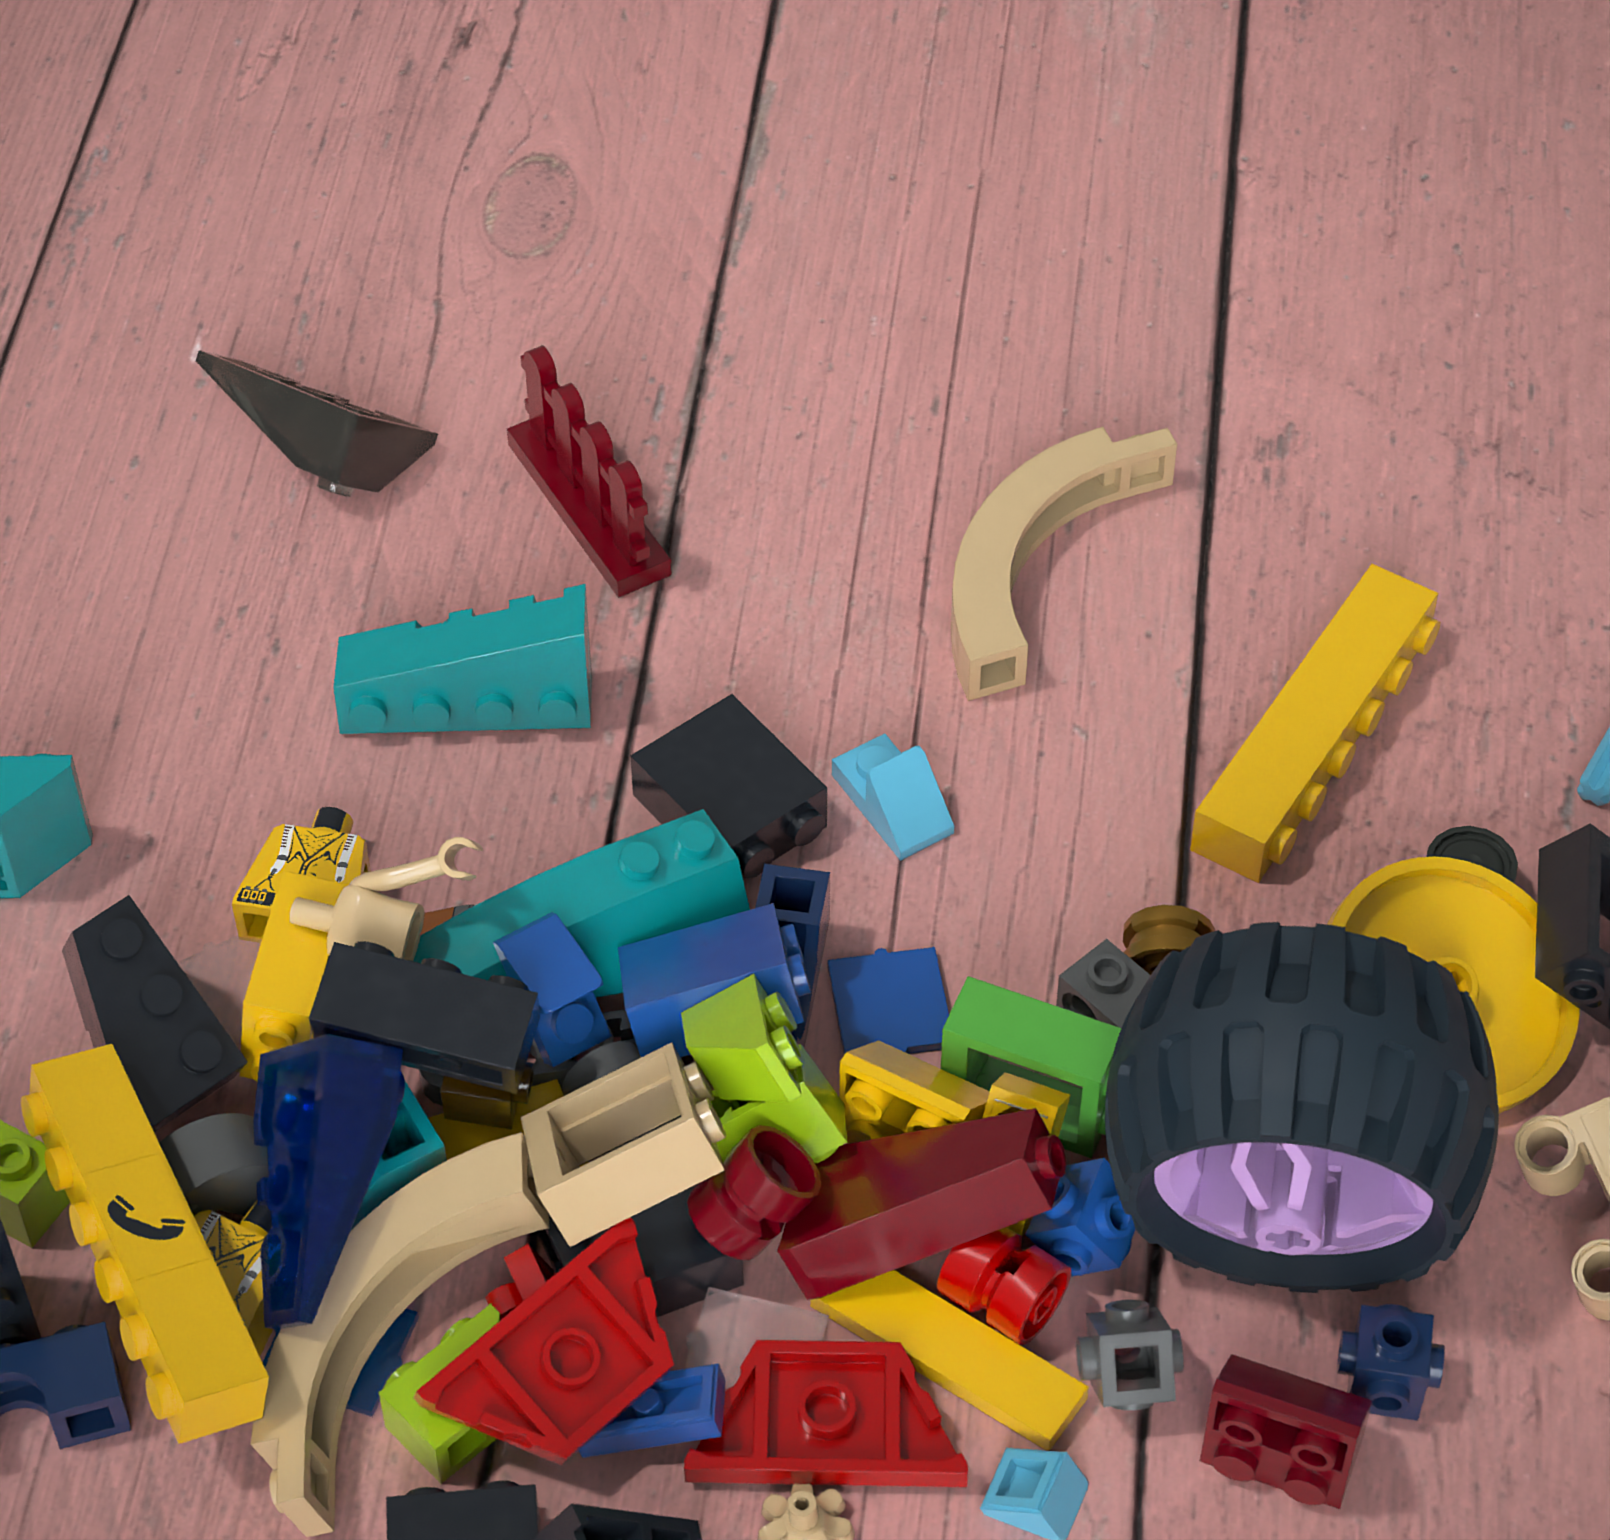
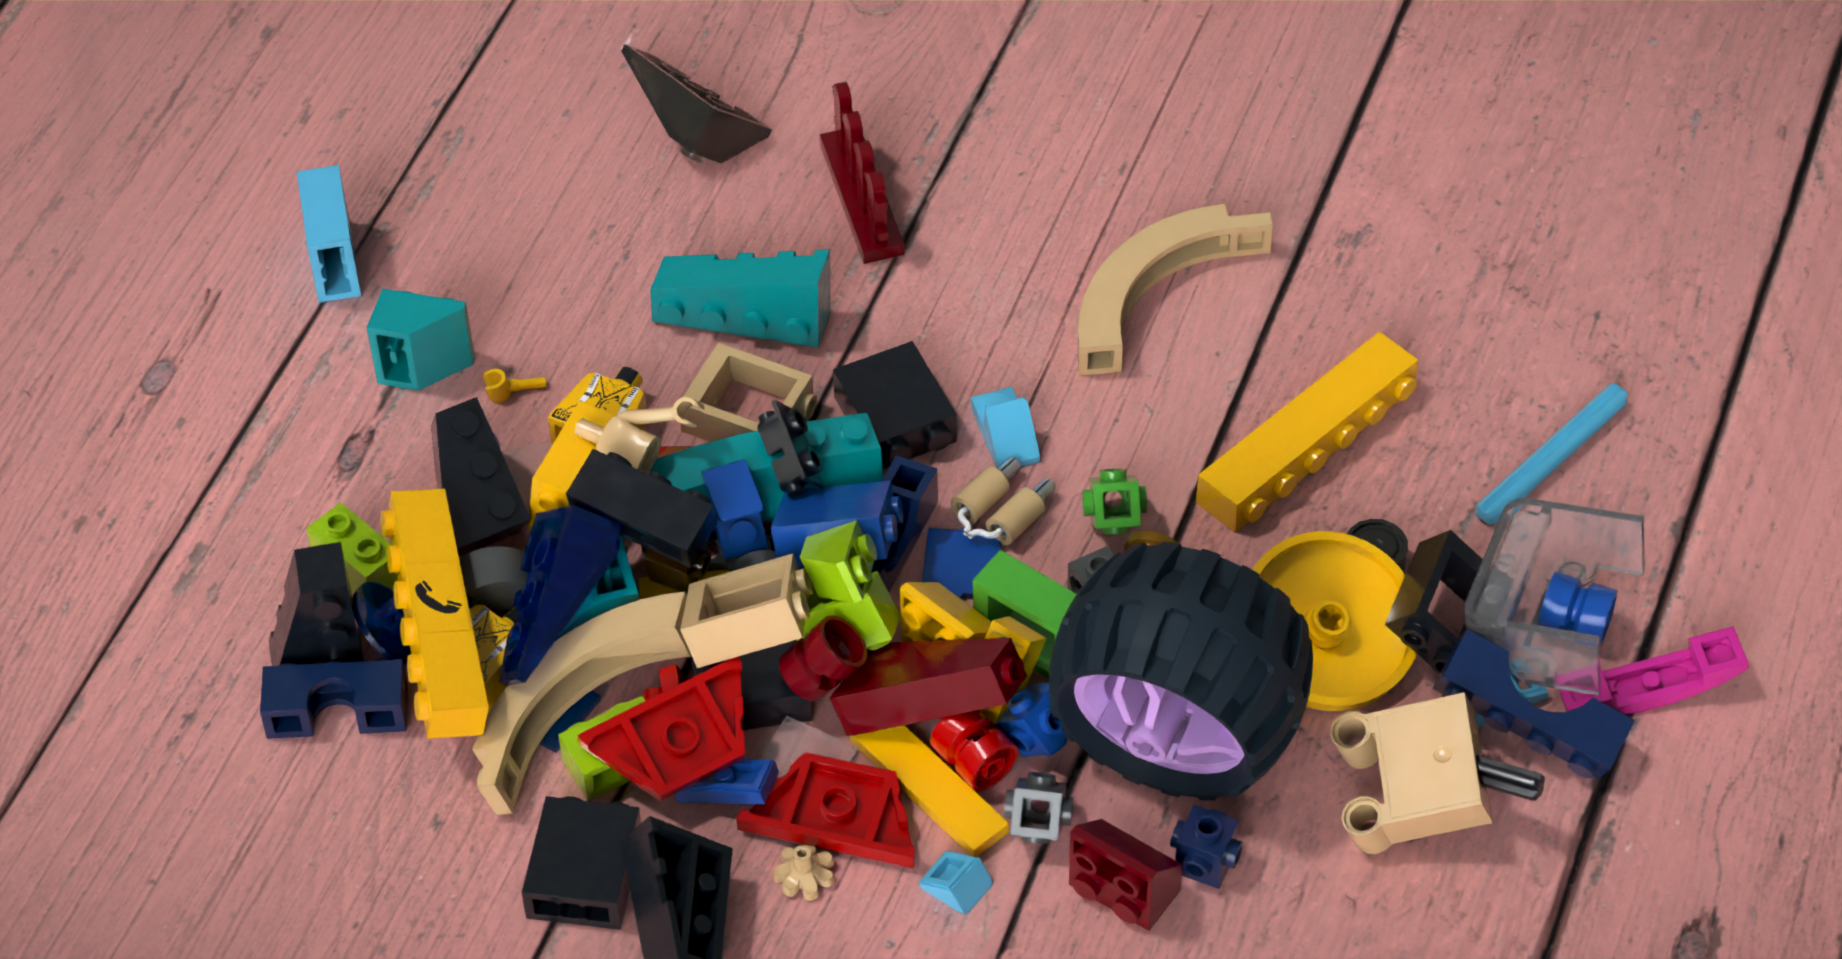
camera: 15 degrees right, 0 degrees up
(58, 1267) = (380, 620): none -> clear blue piece
(144, 872) = (500, 388): none -> yellow hand
(516, 780) = (733, 364): none -> tan window
(635, 903) = (786, 433): none -> black hinge
(947, 919) = (1009, 519): none -> tan piece
(1107, 875) = (1126, 513): none -> bright green brick

